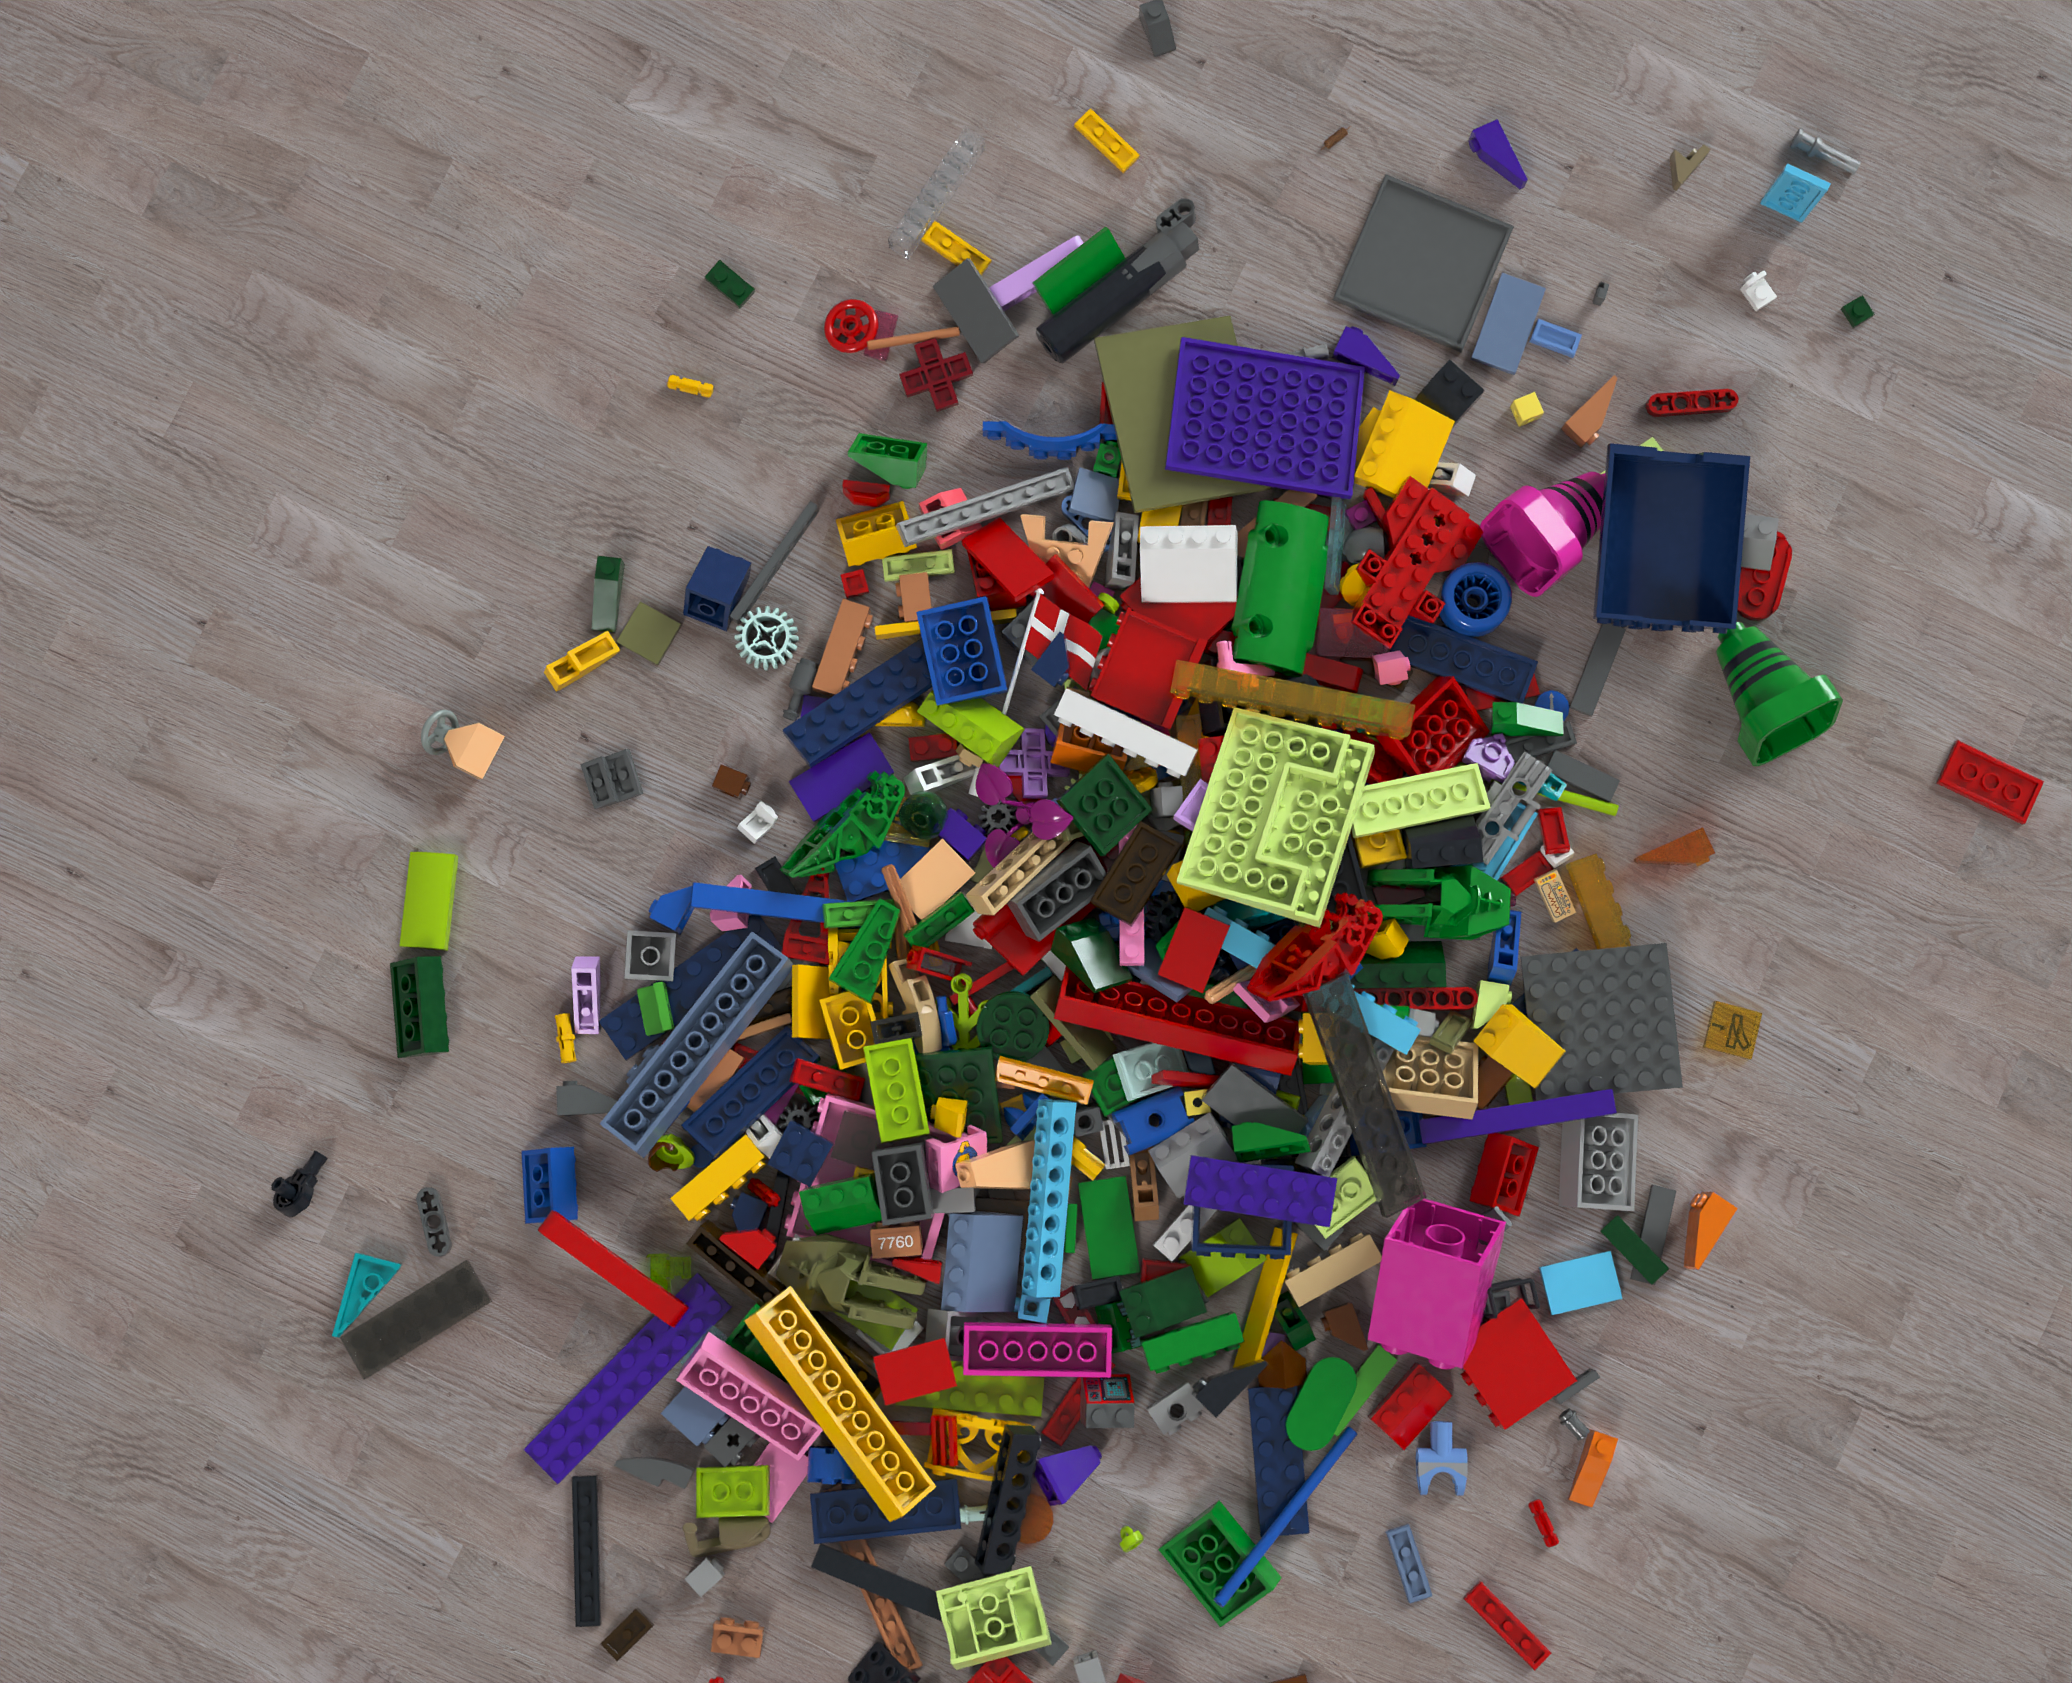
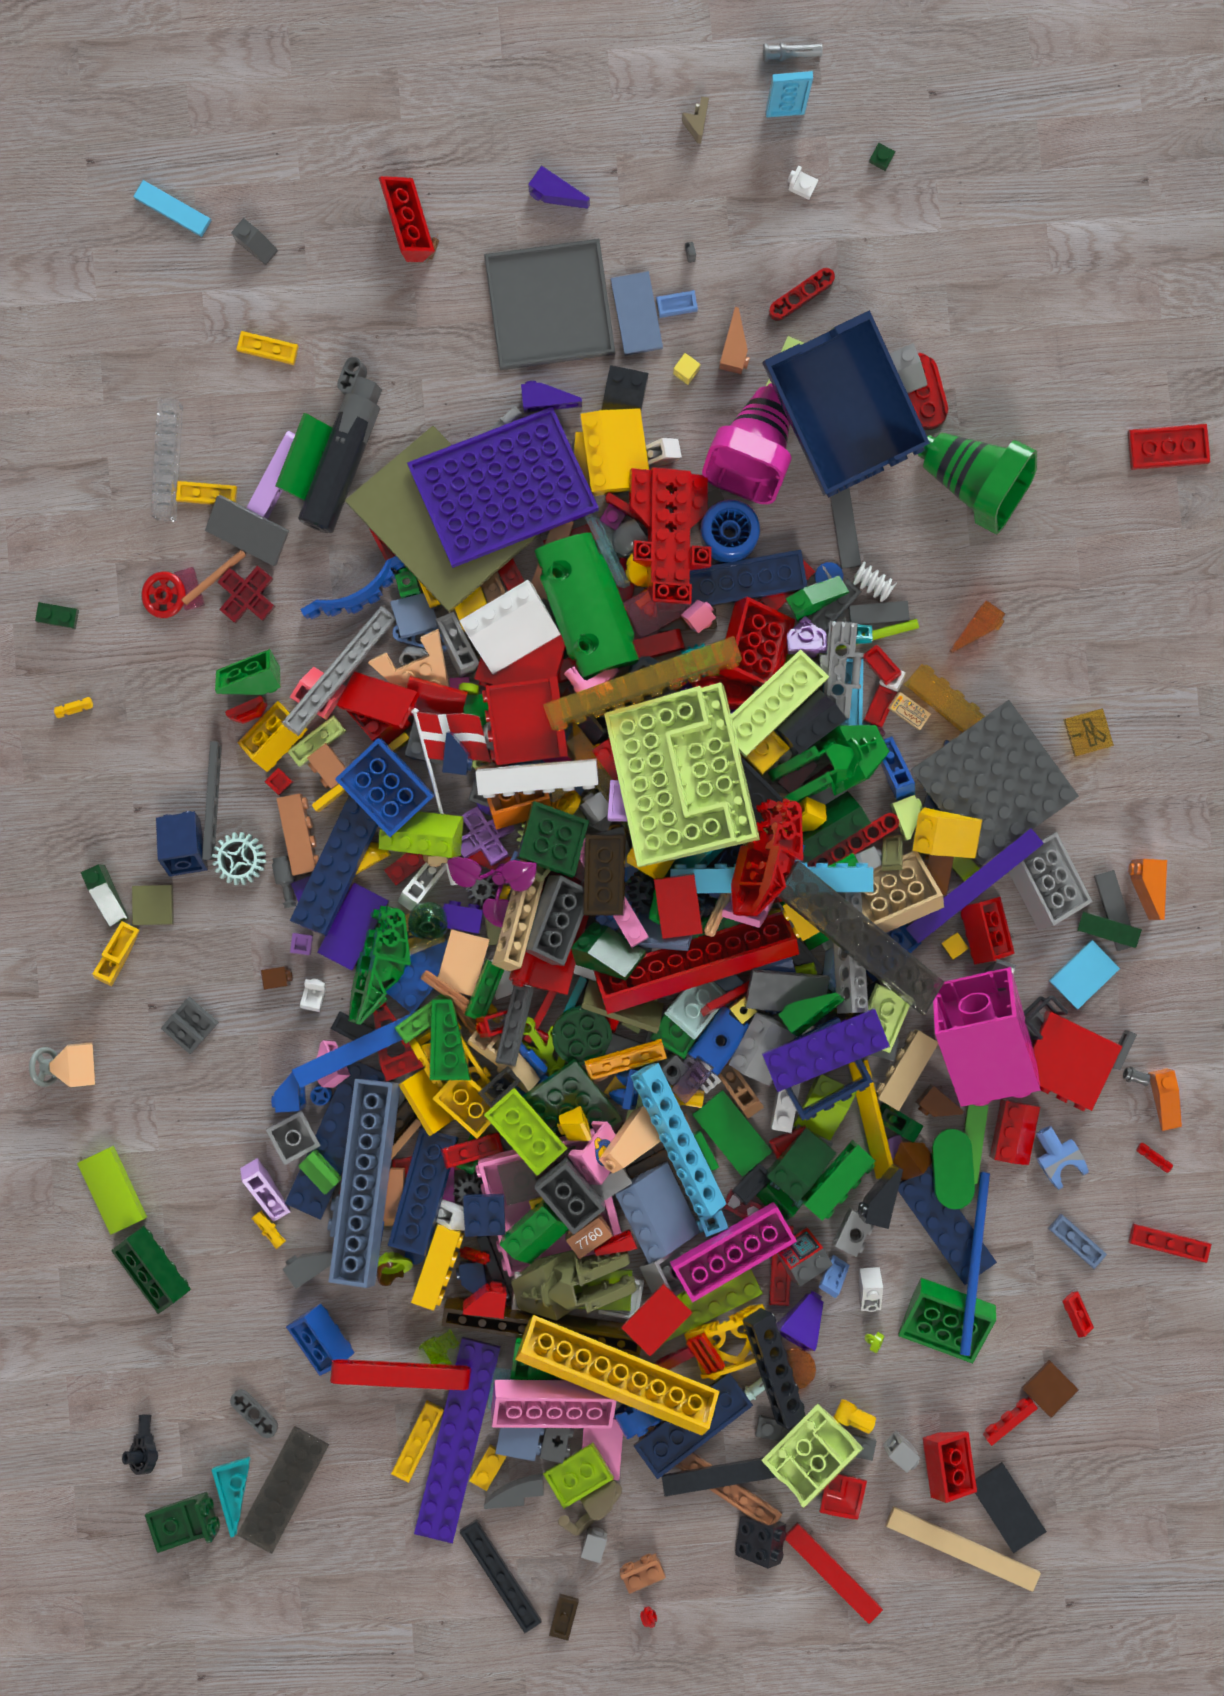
camera: 30 degrees left, 5 degrees up
(292, 1290) = (183, 1522): none -> dark green bracket
(585, 1354) = (417, 1441): none -> yellow tile
(642, 1427) = (487, 1468): none -> yellow plate
(701, 927) = (318, 1097): none -> blue wheel
(777, 763) = (301, 944): none -> medium lavender tile
(949, 975) = (514, 1025): none -> dark grey tile
(1057, 1601) = (849, 1414): none -> yellow piece
(1098, 1144) = (690, 1081): none -> clear purple slope
(1127, 1442) = (834, 1276): none -> medium blue tile
(1158, 1480) = (870, 1289): none -> white slope
(1328, 93) = (407, 218): none -> red slope
(1364, 1641) = (1078, 1314): none -> red plate
(1460, 1170) = (954, 945): none -> yellow tile
(1594, 740) = (873, 582): none -> white piece

